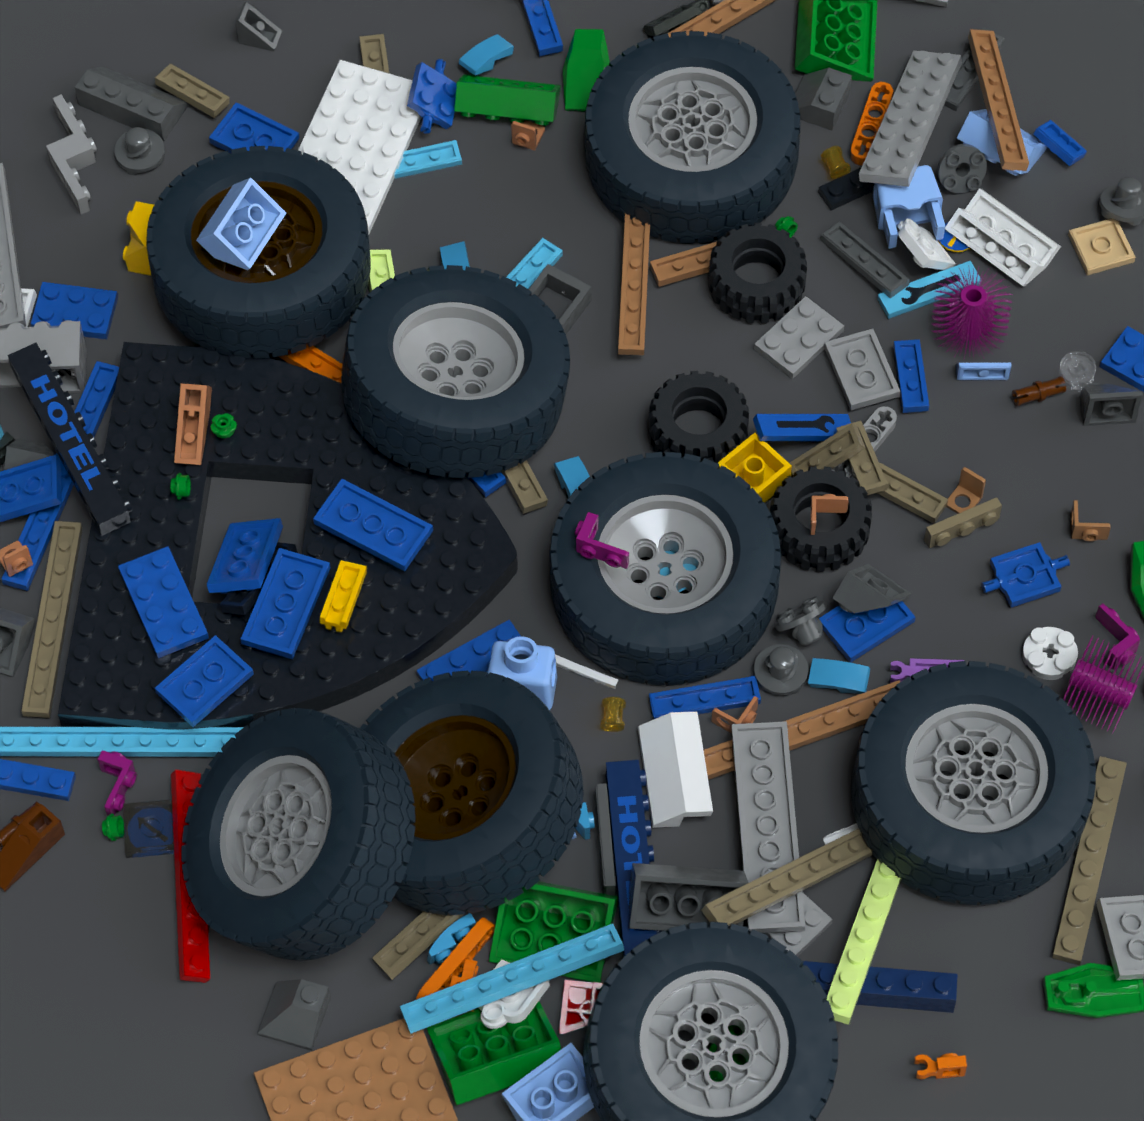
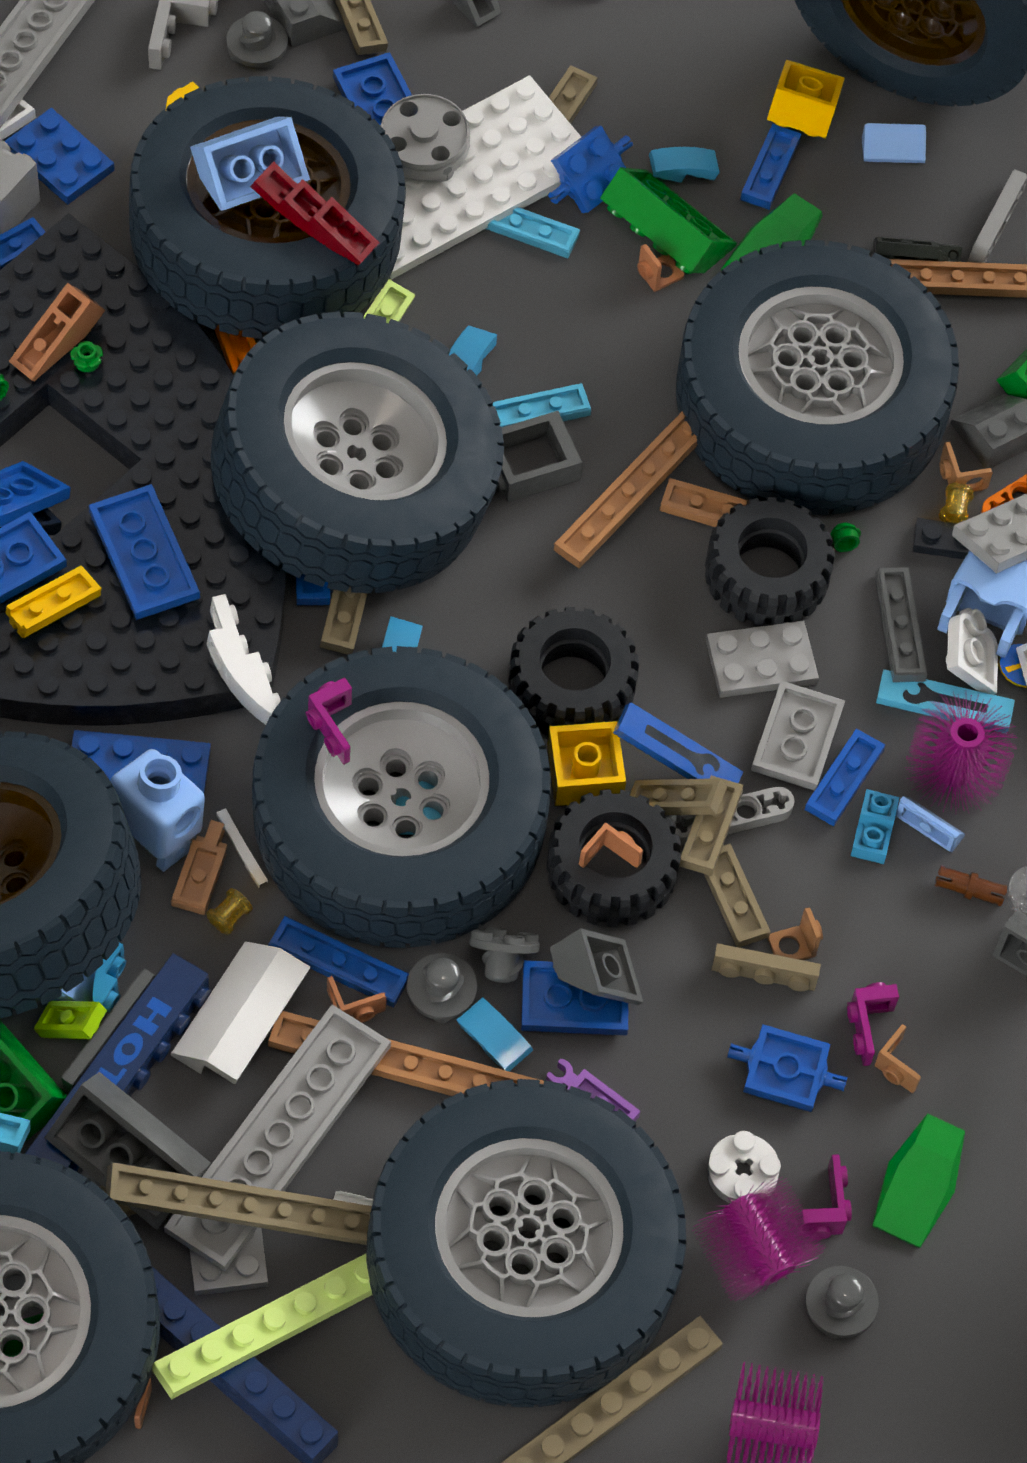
camera: 30 degrees right, 0 degrees up
(315, 138) = (428, 135): none -> light grey piece
(317, 233) = (312, 214): none -> dark red slope
(503, 559) = (241, 671): none -> white slope
(574, 702) = (201, 870): none -> medium nougat hinge
(583, 845) = (70, 1019): none -> lime plate
(817, 144) = (950, 471): none -> medium nougat bracket
(952, 394) = (875, 826): none -> dark azure slope
(1039, 512) = (869, 1000): none -> magenta bracket

